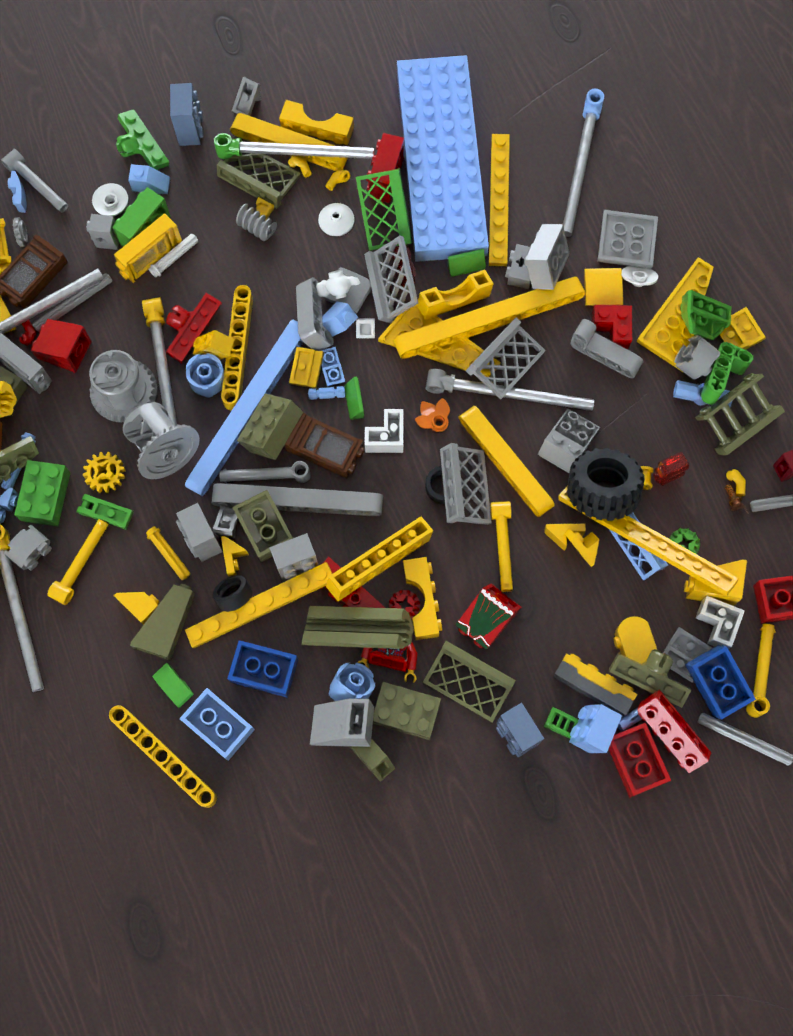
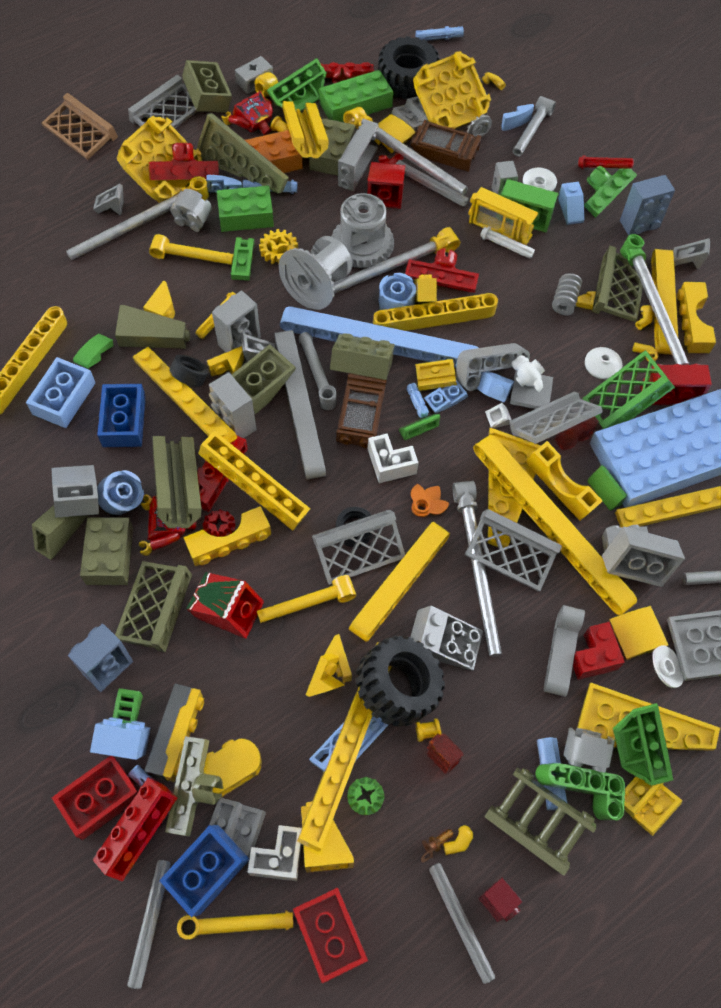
camera: 70 degrees right, 10 degrees down
(111, 131) = (594, 162): none -> red axle

